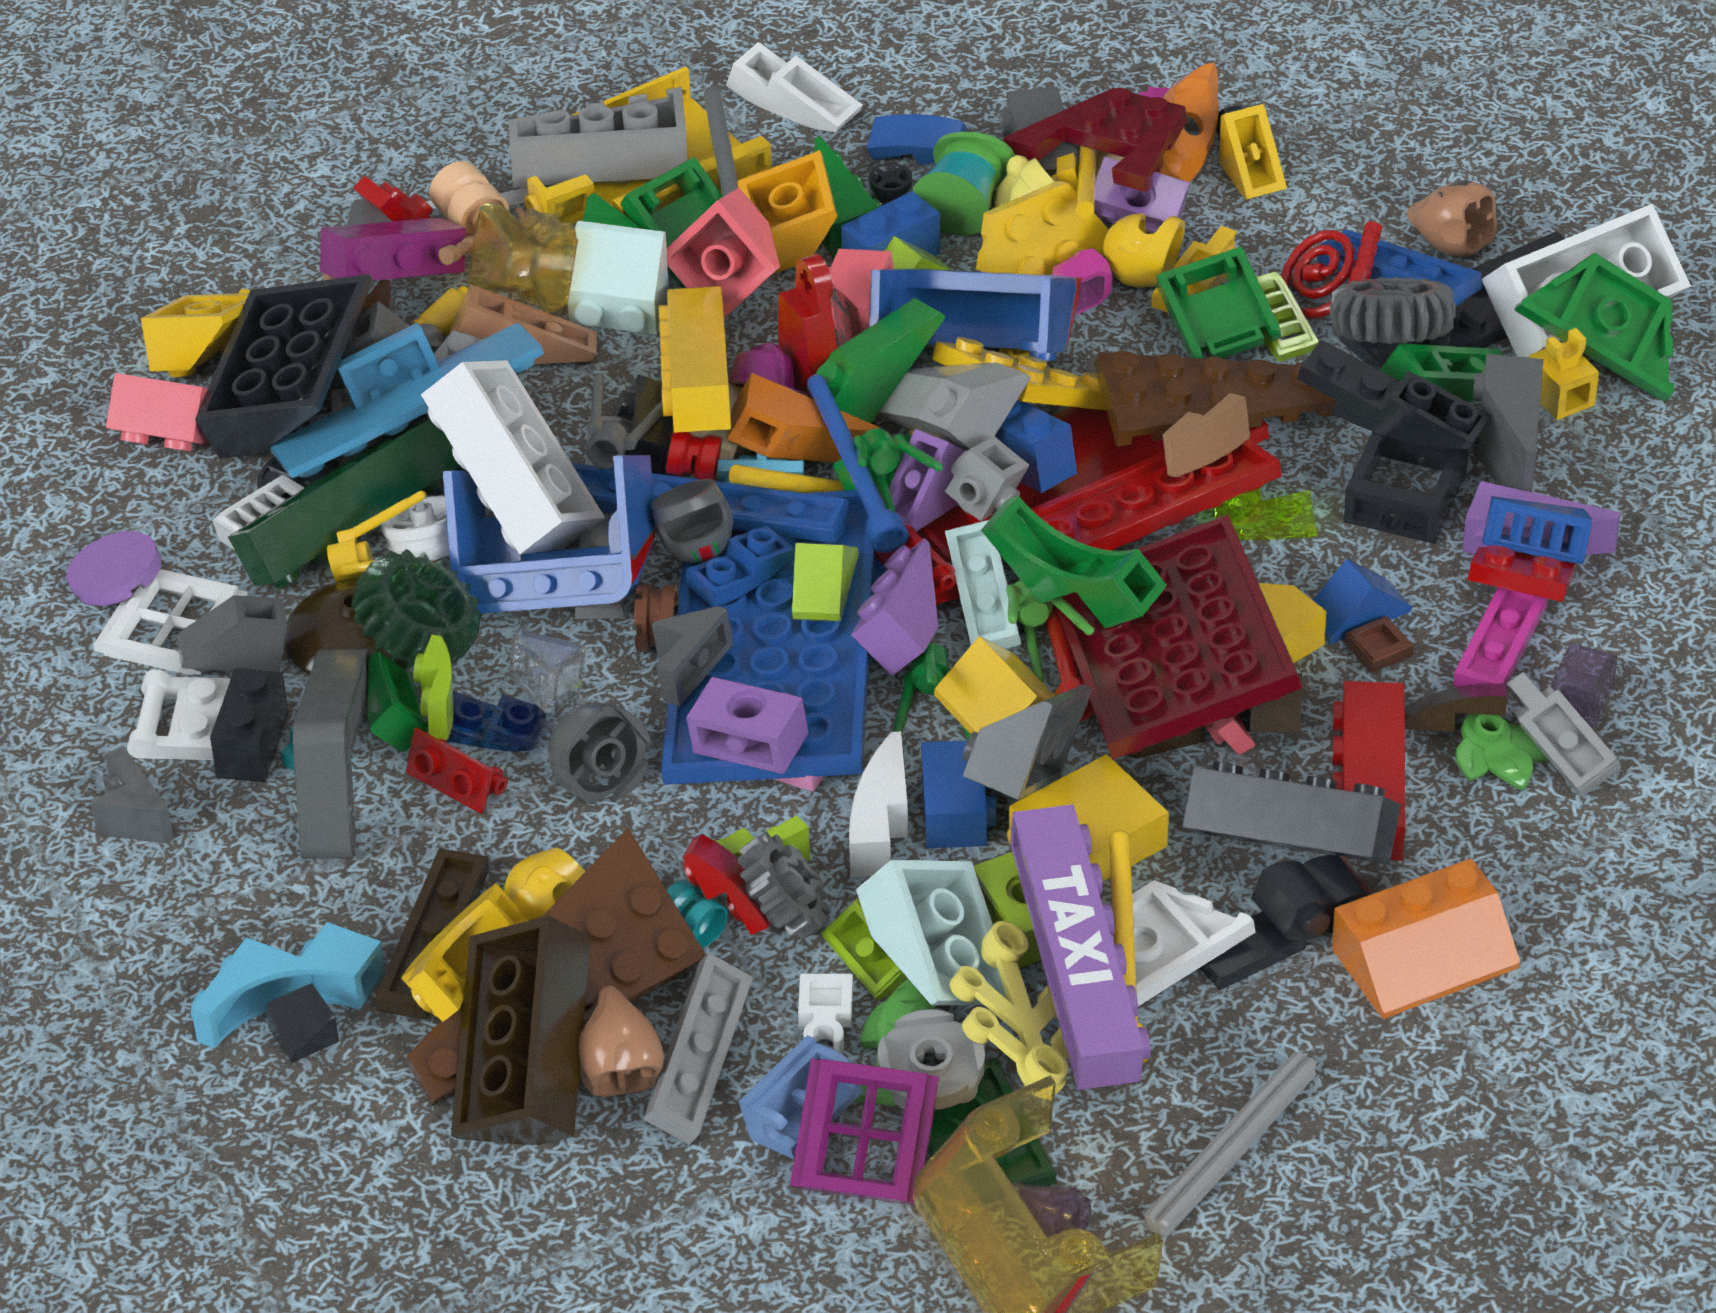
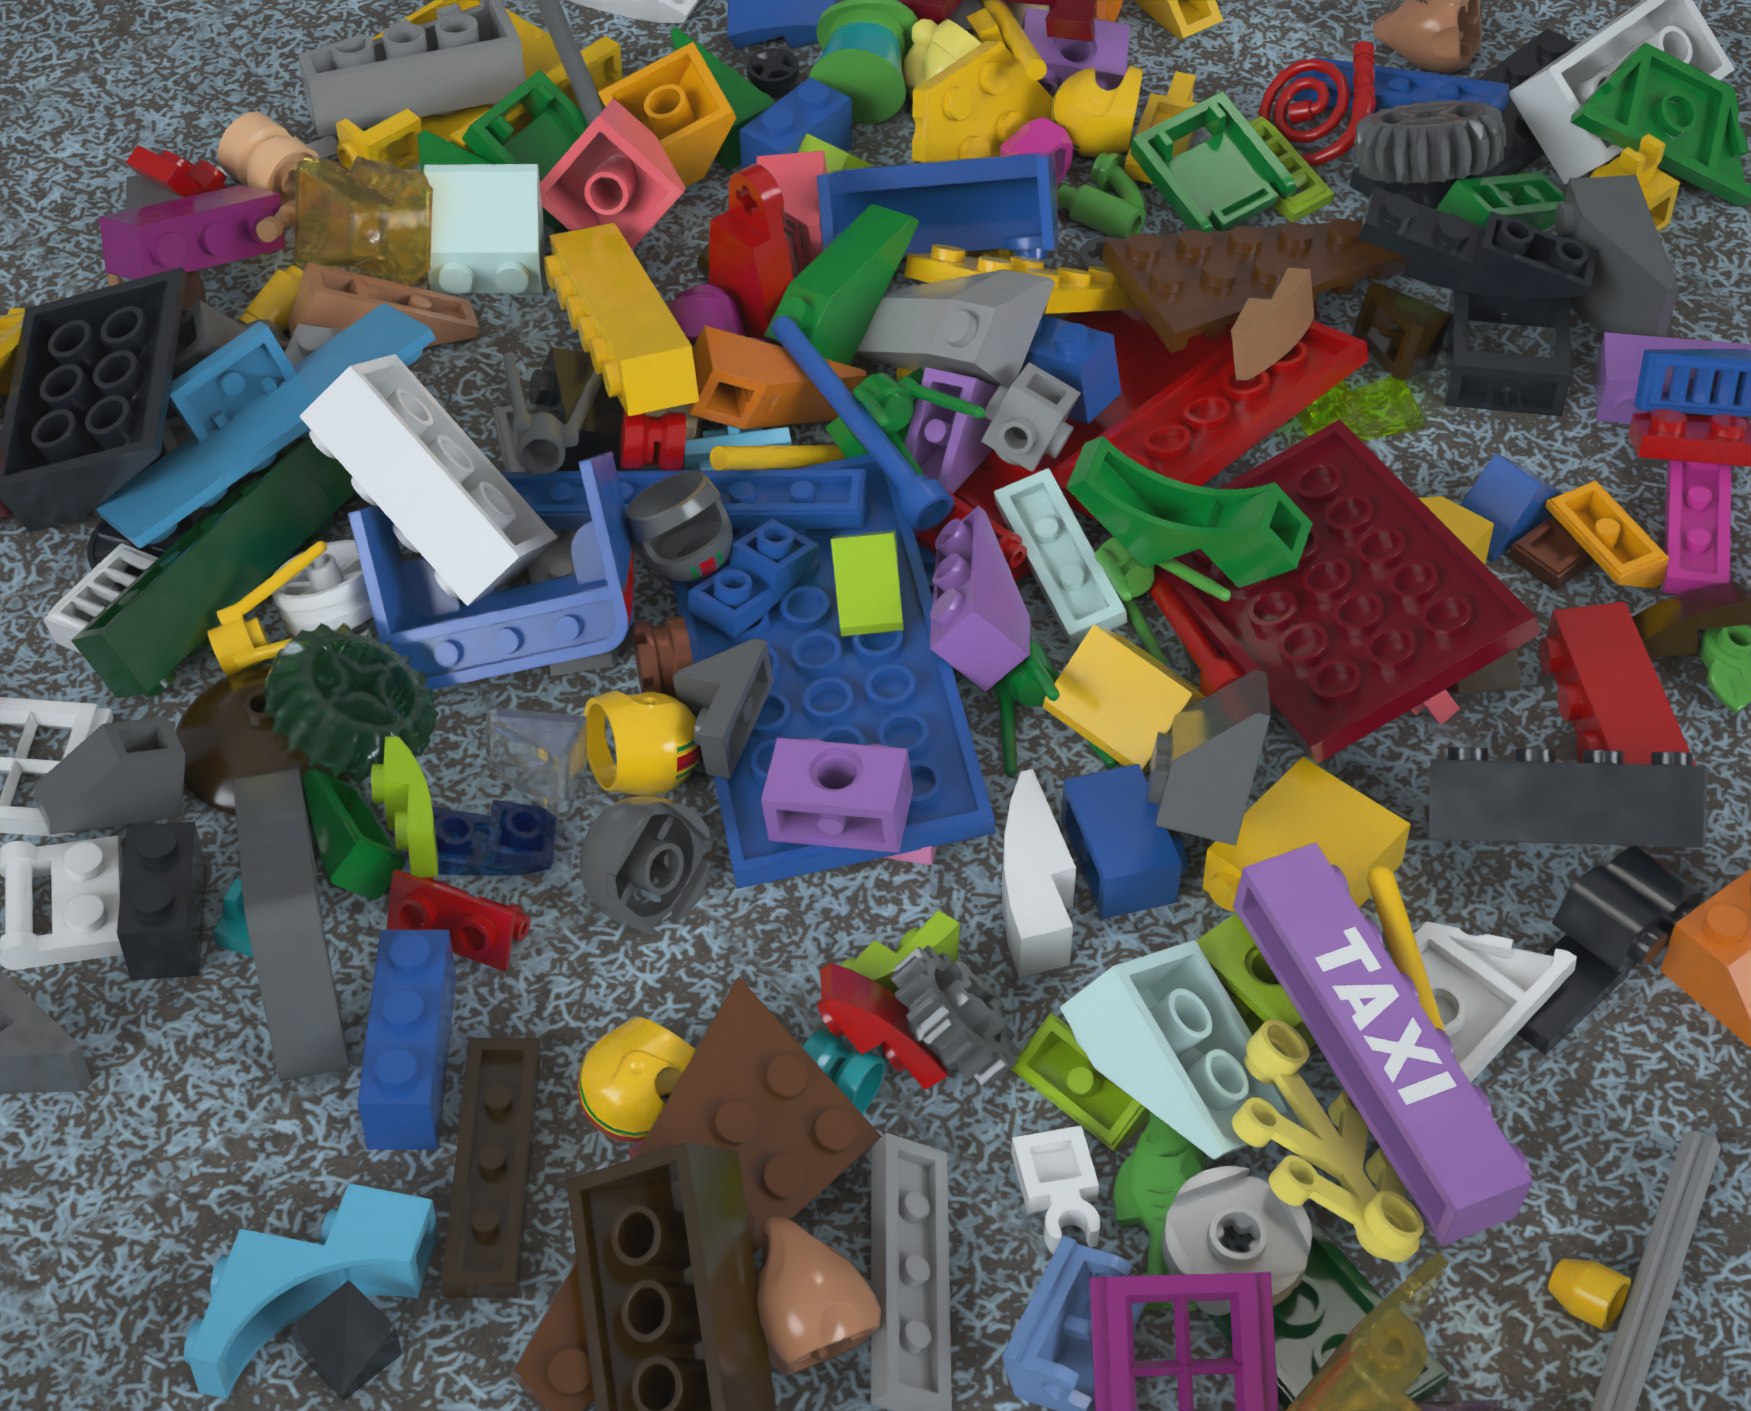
camera: 15 degrees left, 5 degrees up
(396, 842) = (408, 1040): none -> blue brick
(440, 969) = (530, 1219): yellow arch -> none
(621, 670) = (650, 739): none -> yellow helmet
(1122, 330) = (1101, 210): none -> bright green plant
(1176, 1135) = (1590, 1291): none -> yellow hose
(1323, 459) = (1400, 330): none -> dark brown slope
(1422, 636) = (1610, 536): none -> light orange slope

